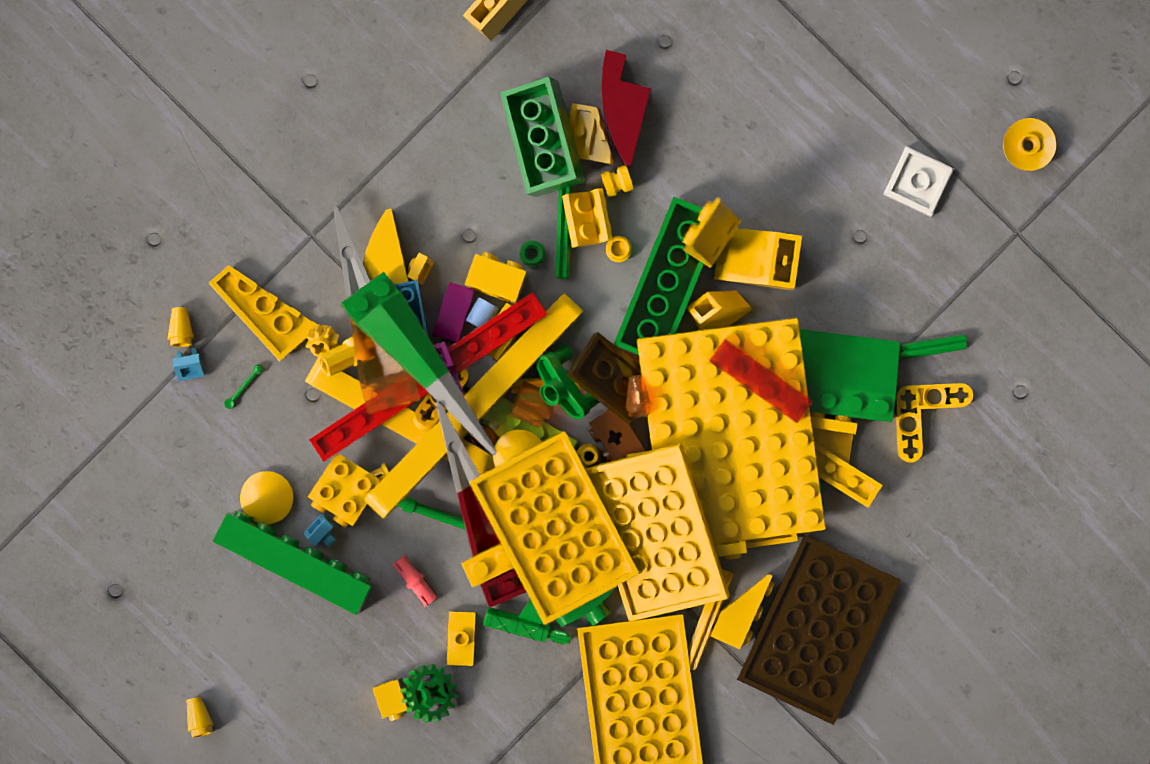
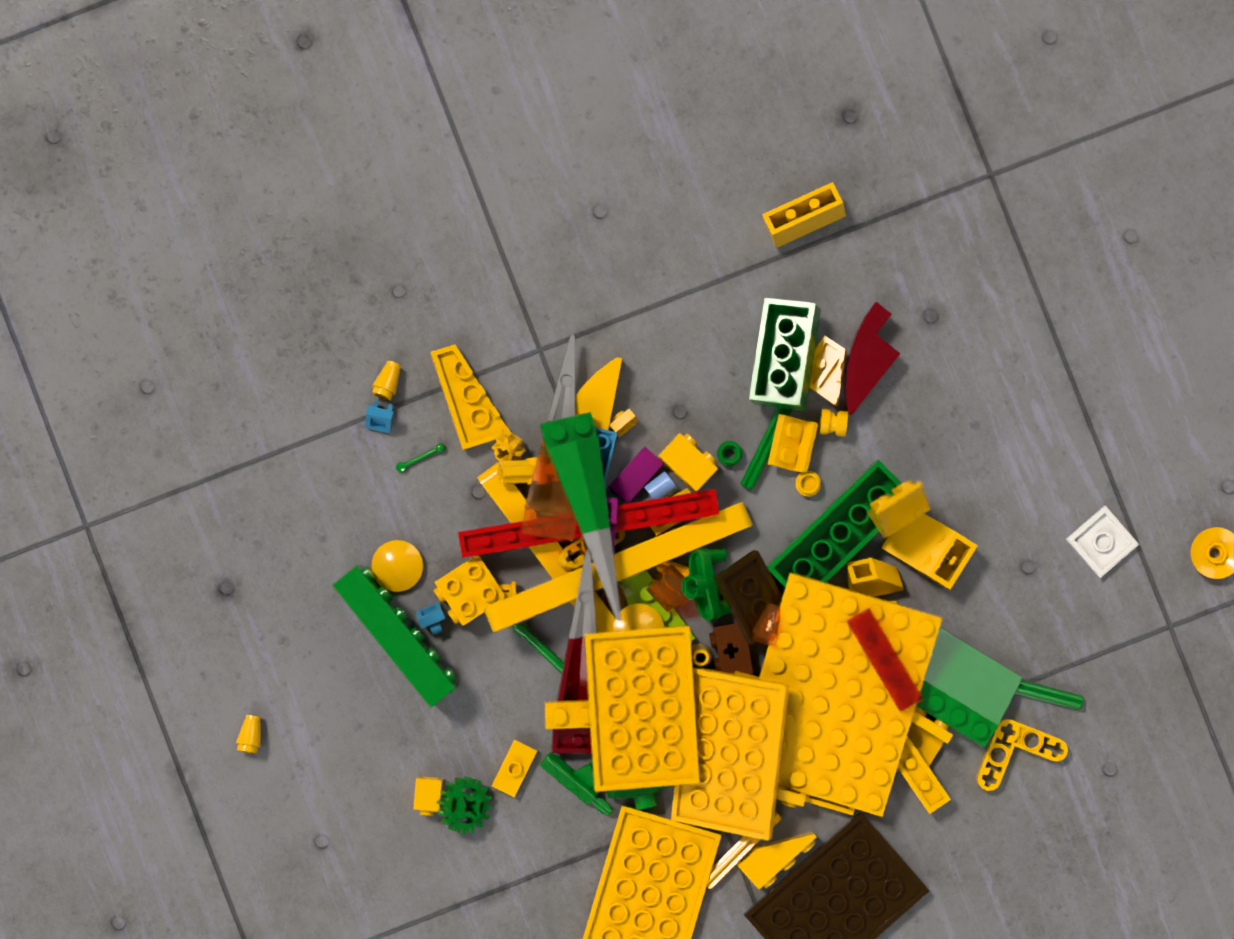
camera: 20 degrees right, 0 degrees up
(415, 580) = (496, 698): coral pin -> none

